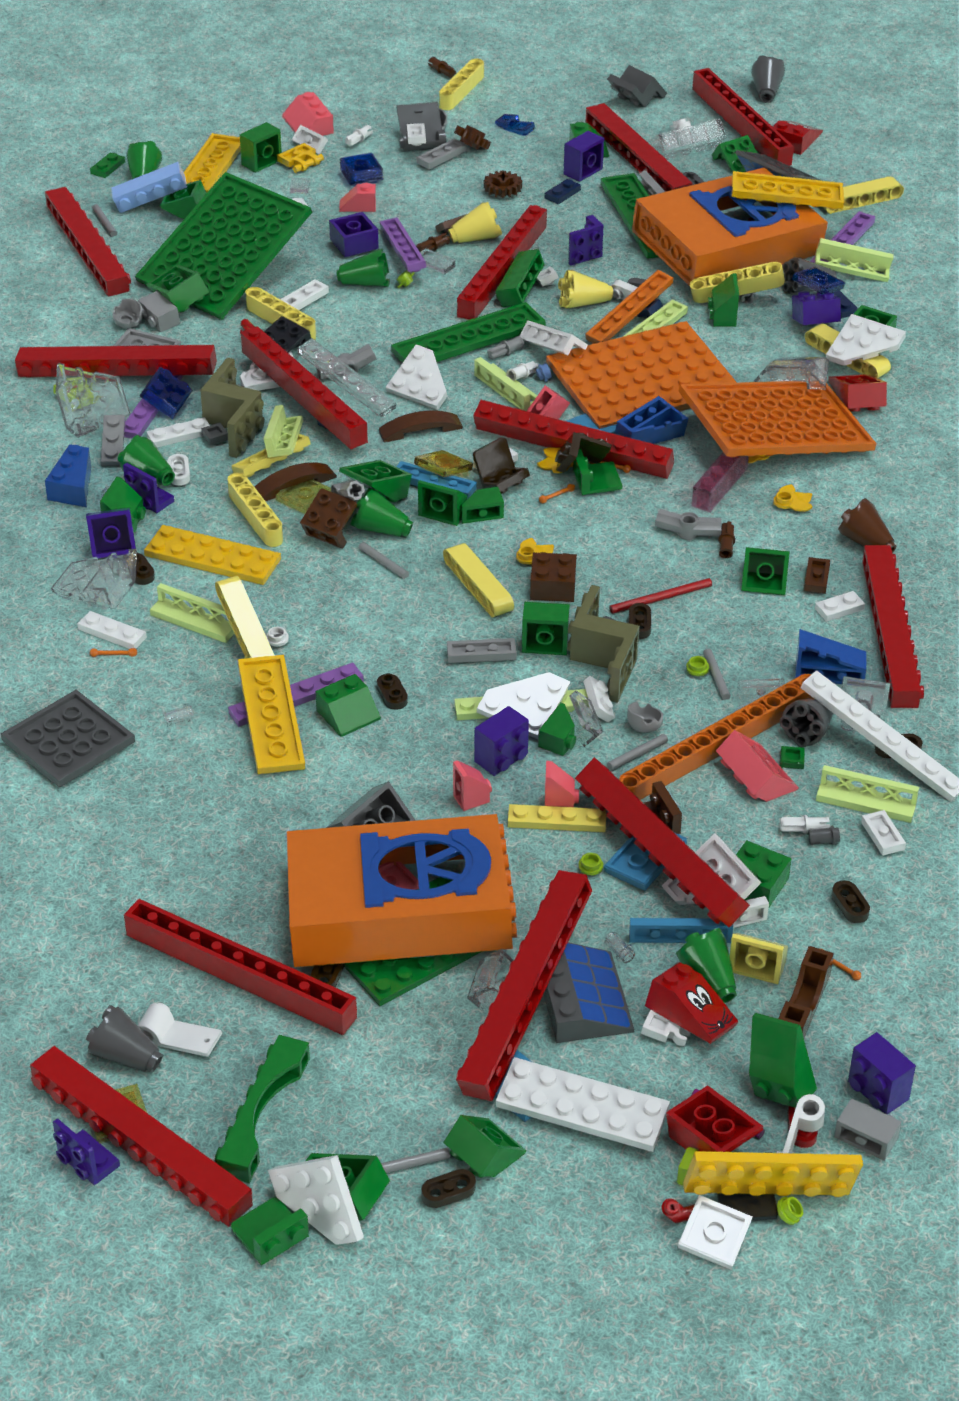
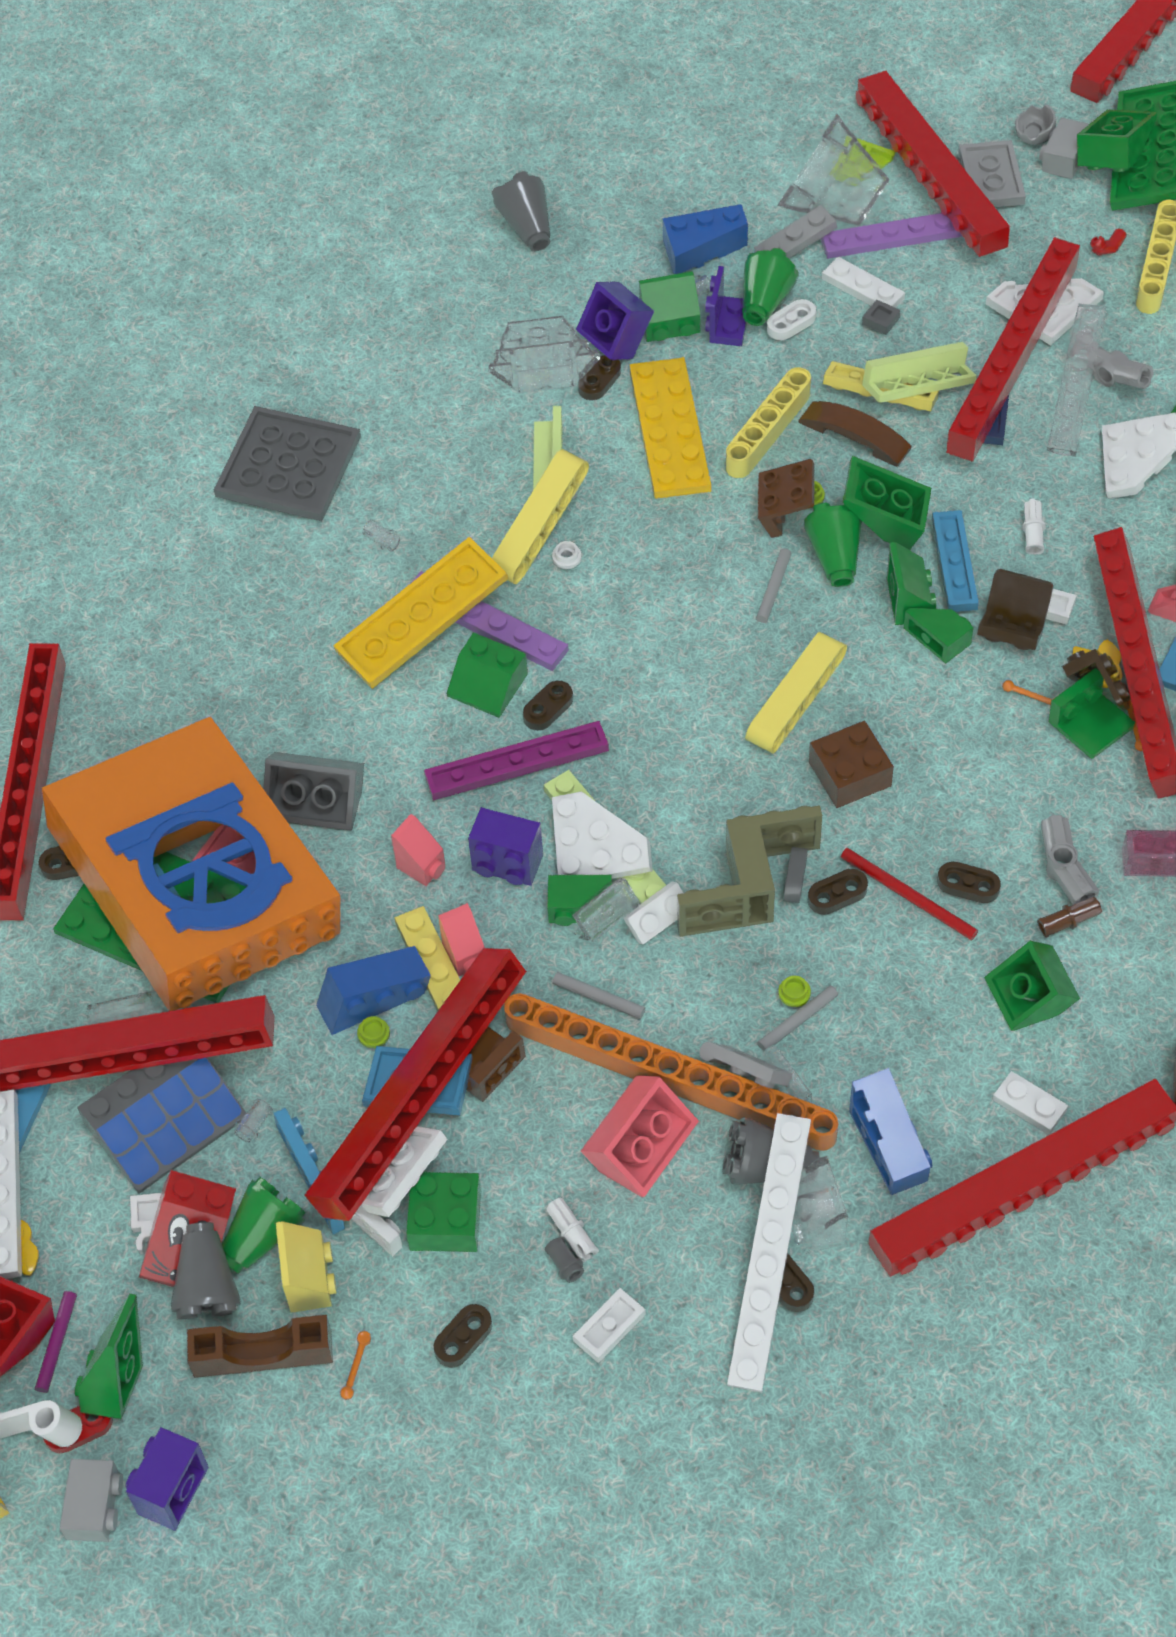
camera: 65 degrees right, 15 degrees up
(111, 630) = (482, 409): white plate -> none
(131, 652) = (461, 443): orange hinge -> none
(166, 392) = (901, 248): clear blue brick -> none
(232, 406) = (928, 286): olive bracket -> none
(288, 334) = (1109, 281): black bracket -> none
(301, 495) = (833, 454): clear yellow tile -> none
(349, 489) = (827, 486): light grey piece -> none
(418, 421) = (1060, 494): reddish brown slope -> none
(426, 720) = (516, 760): none -> magenta plate
(436, 441) = (1033, 527): none -> white axle
(443, 463) = (987, 550): clear yellow tile -> none
(481, 650) = (671, 756): light grey plate -> none
(527, 548) = (898, 726): yellow plate -> none
(545, 628) = (733, 789): green brick -> none
(561, 844) = (371, 987): none -> blue wedge
(645, 718) = (653, 973): light grey hair -> none
(673, 567) = (969, 881): none -> dark brown plate
(737, 999) = (203, 1275): none -> dark grey cone
(743, 698) = (745, 1064): none -> light grey plate
(792, 757) = (693, 1167): green tile -> none
(817, 575) = (1070, 1049): reddish brown plate -> none
(867, 798) = (664, 1282): yellowish green fence -> none

